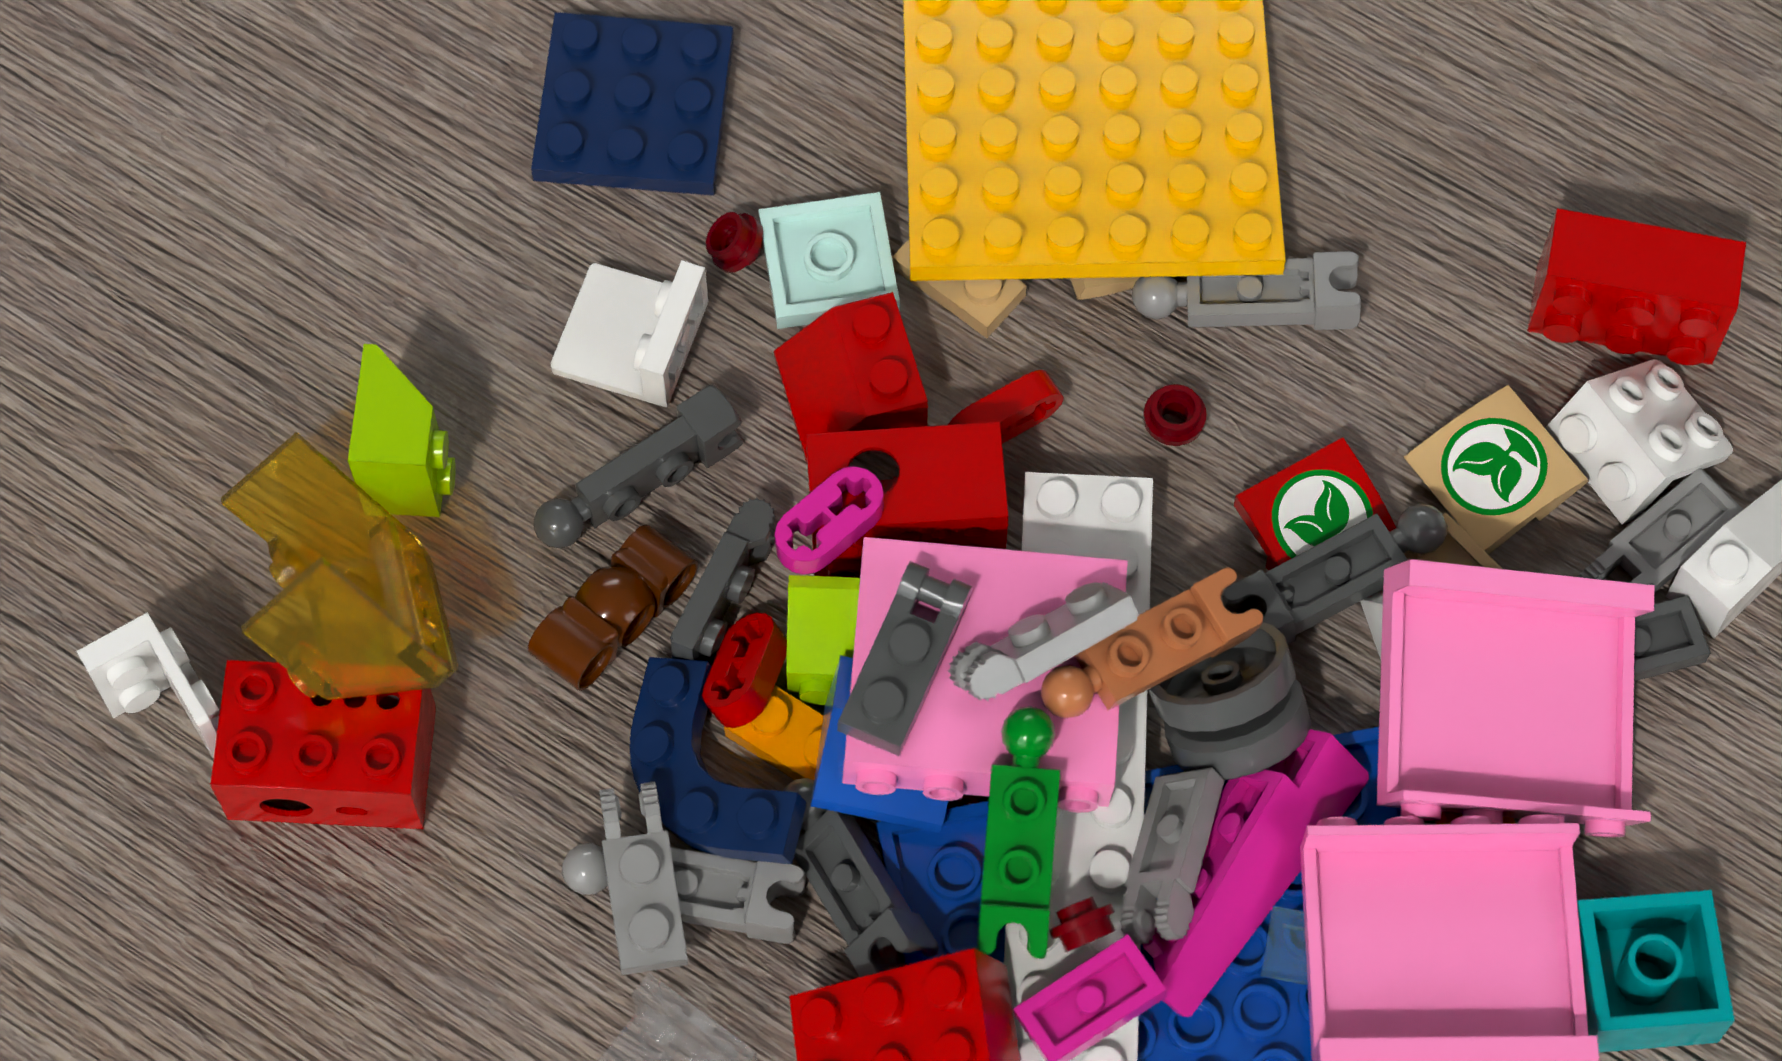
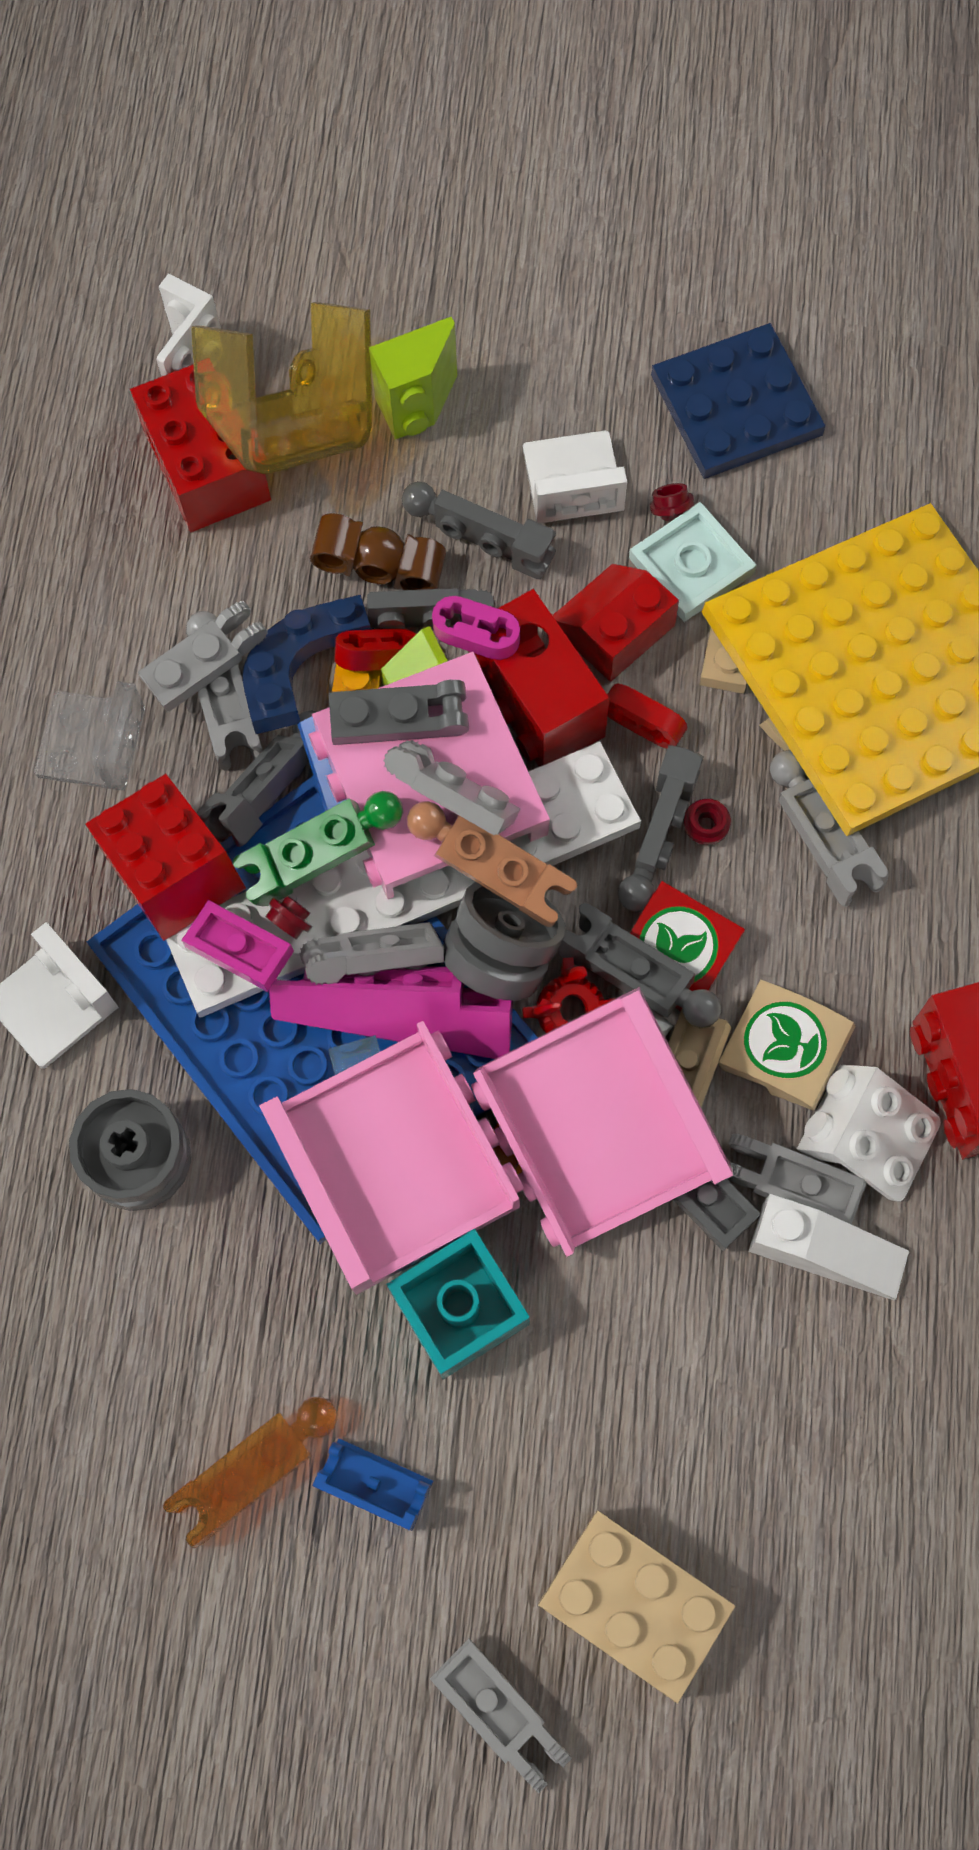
camera: 65 degrees right, 5 degrees up
(1108, 420) = (676, 783): none -> dark grey plate
(1343, 702) = (569, 983): none -> red piece

